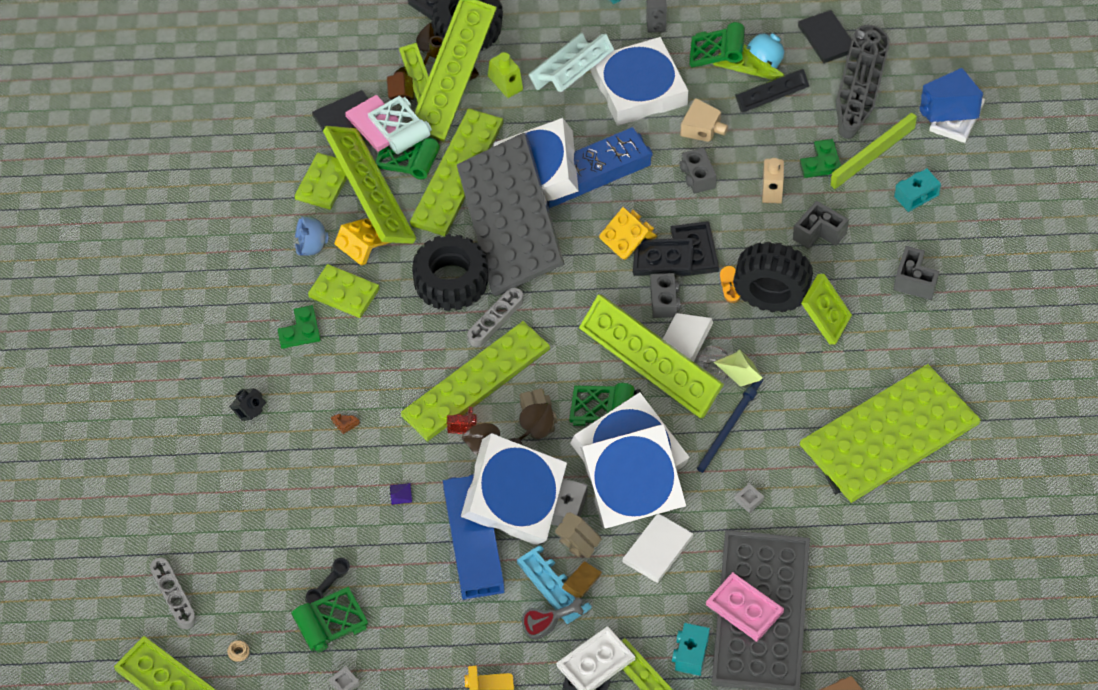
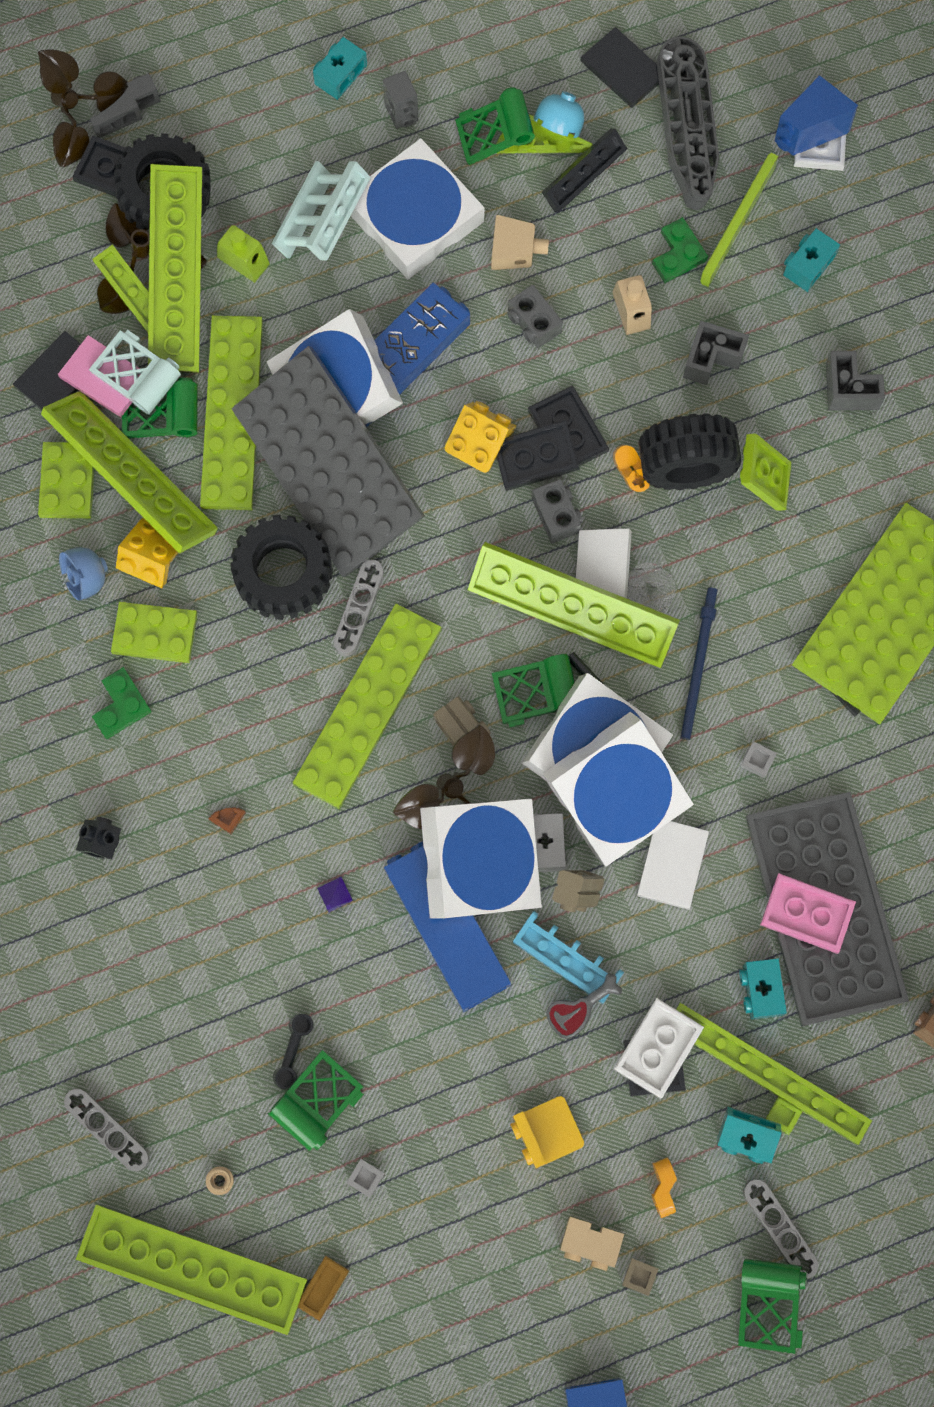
camera: 20 degrees left, 20 degrees up
(400, 85) = (115, 315): reddish brown brick -> none
(460, 424) = (374, 775): clear red bracket -> none
(582, 580) = (601, 943): pearl gold tile -> none
(739, 368) = (687, 585): yellowish green slope -> none

